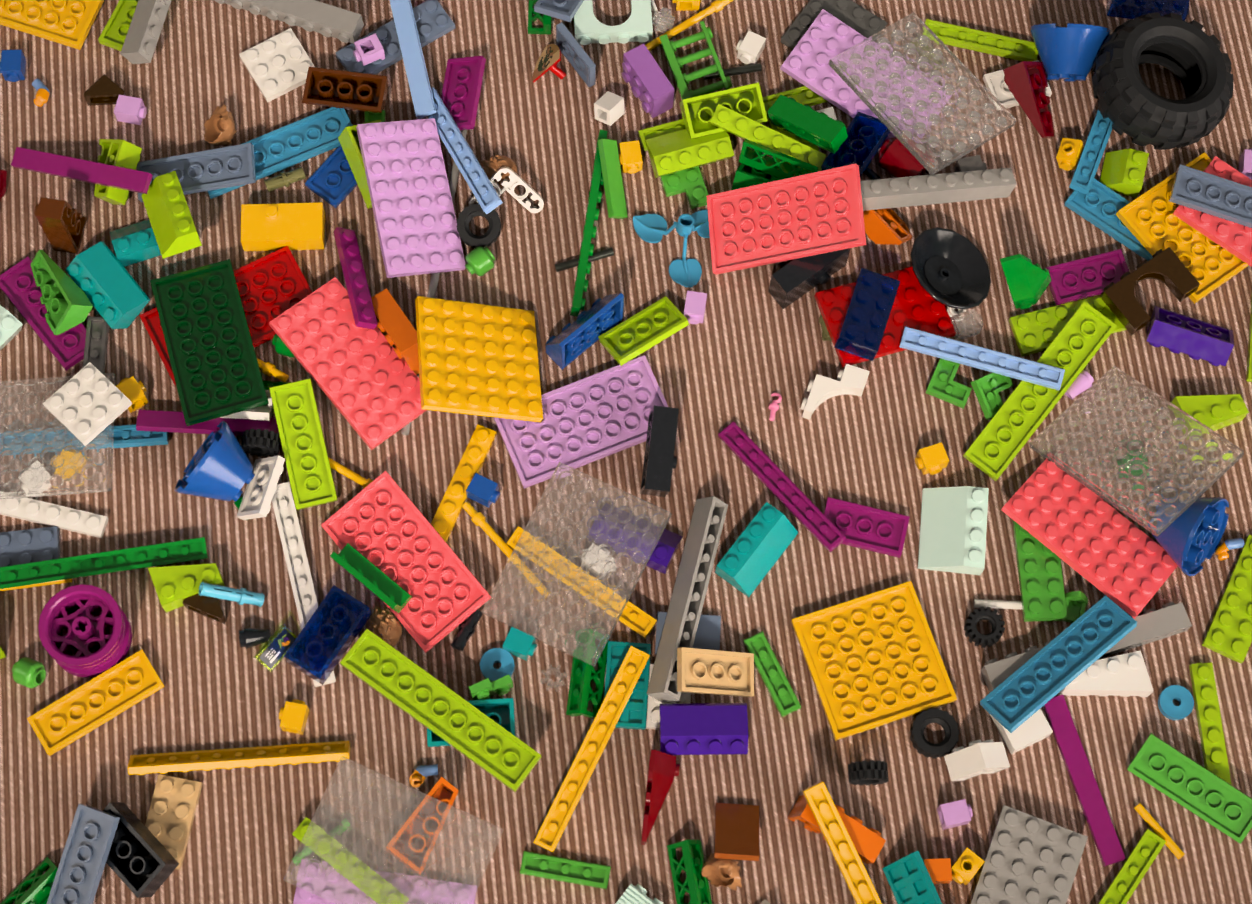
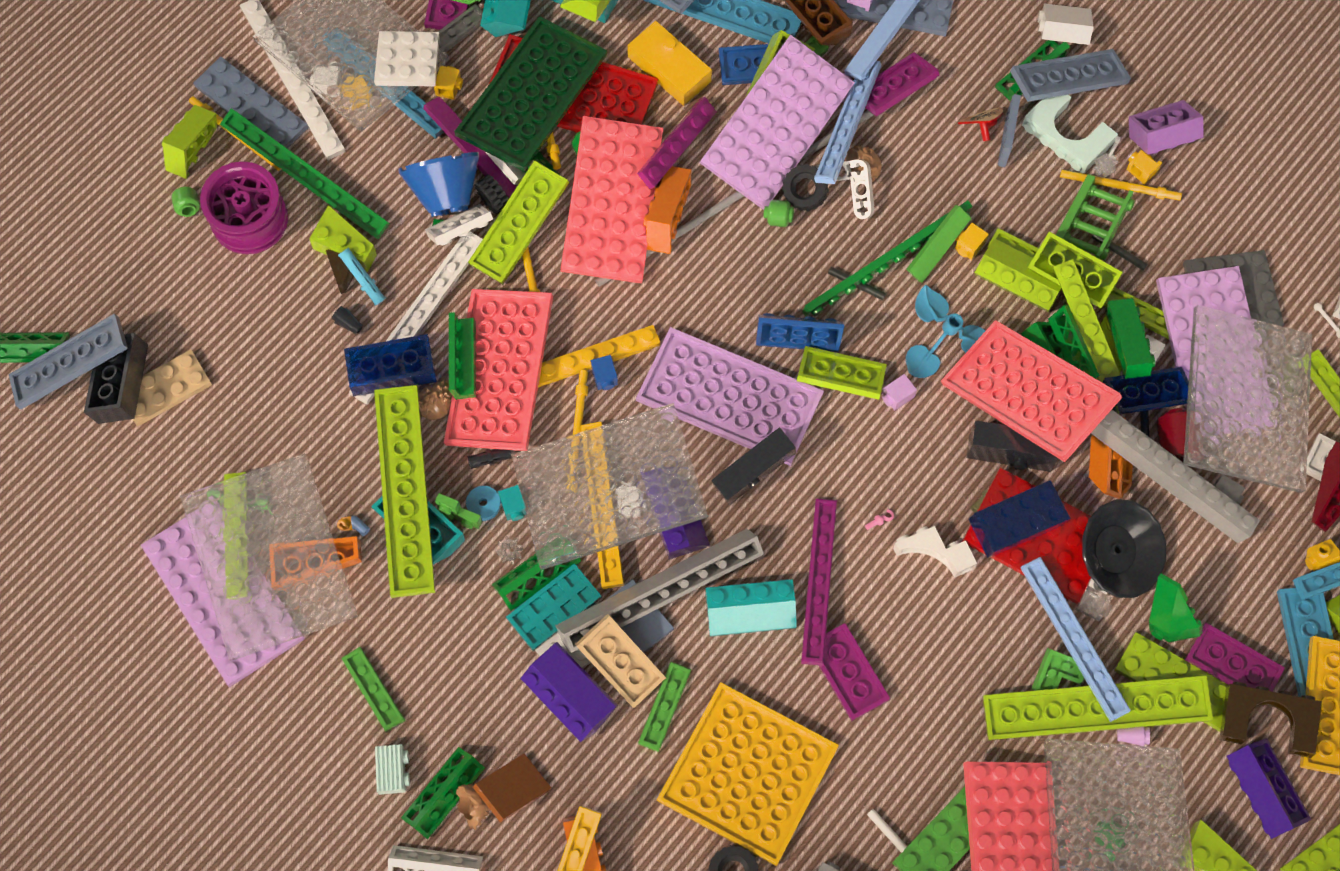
camera: 50 degrees right, 0 degrees up
(95, 702) = (205, 263): yellow plate -> none
(238, 757) = (251, 391): yellow plate -> none
(275, 648) = (351, 339): tile -> none
(285, 179) = (707, 32): olive pin -> none
(294, 717) = (313, 399): yellow brick -> none
(478, 359) = (696, 277): yellow plate -> none
(591, 749) = (479, 624): yellow plate -> none
(609, 108) = (993, 191): white brick -> none
(647, 81) = (1042, 197): medium lavender brick -> none
(659, 782) = (503, 694): dark red wedge -> none
(686, 181) = (994, 297): bright green plate -> none
(750, 48) = (1152, 246): white brick -> none
(868, 772) = (650, 847): black tyre -> none
(932, 459) = (954, 674): yellow brick -> none
(945, 388) = (1025, 632): bright green plate -> none
(953, 529) = (914, 741): light aqua slope -> none
(975, 635) = (861, 822): black tyre -> none

